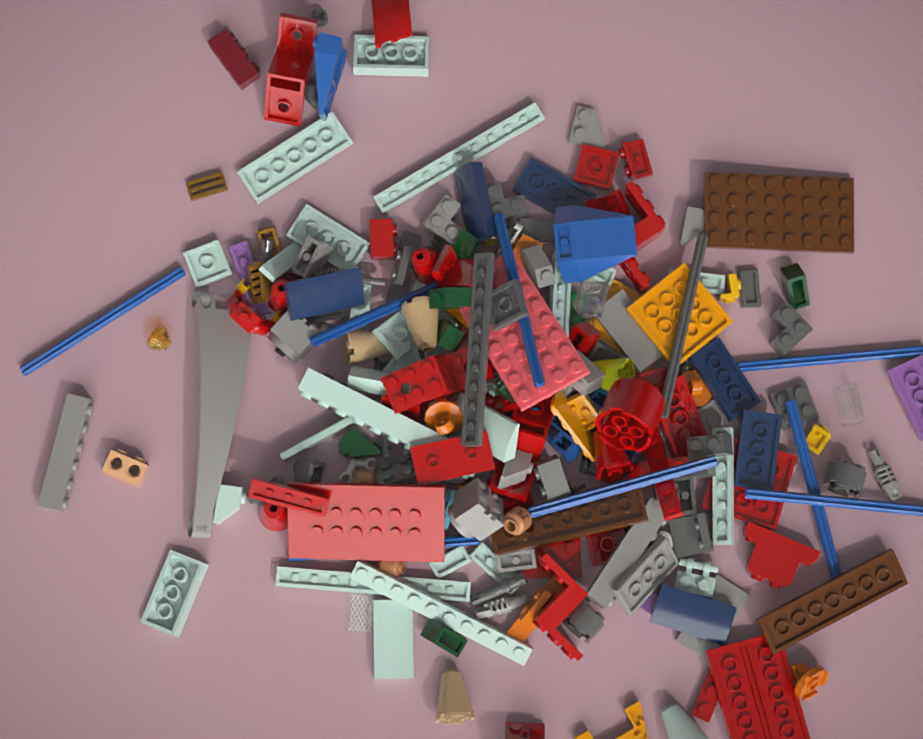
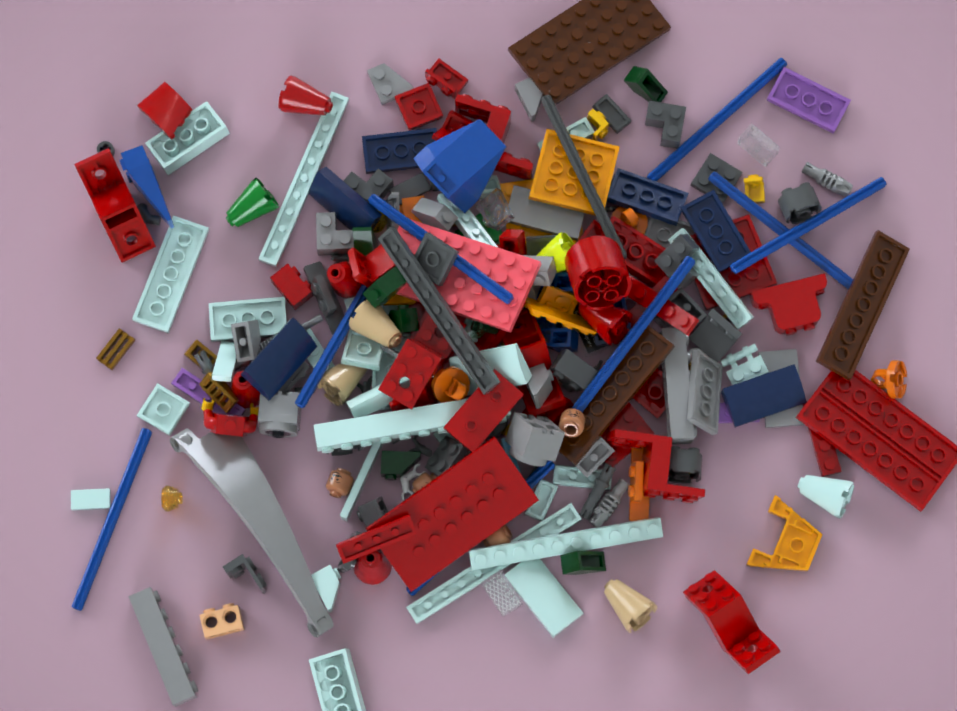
camera: 35 degrees left, 5 degrees down
(97, 292) = (90, 499): none -> light aqua tile
(176, 436) = (238, 565): none -> dark grey bracket
(234, 59) = (61, 232): dark red brick -> none
(300, 427) = (339, 482): none -> nougat head
(401, 148) = (251, 204): none -> green cone
(506, 91) = (303, 98): none -> red cone

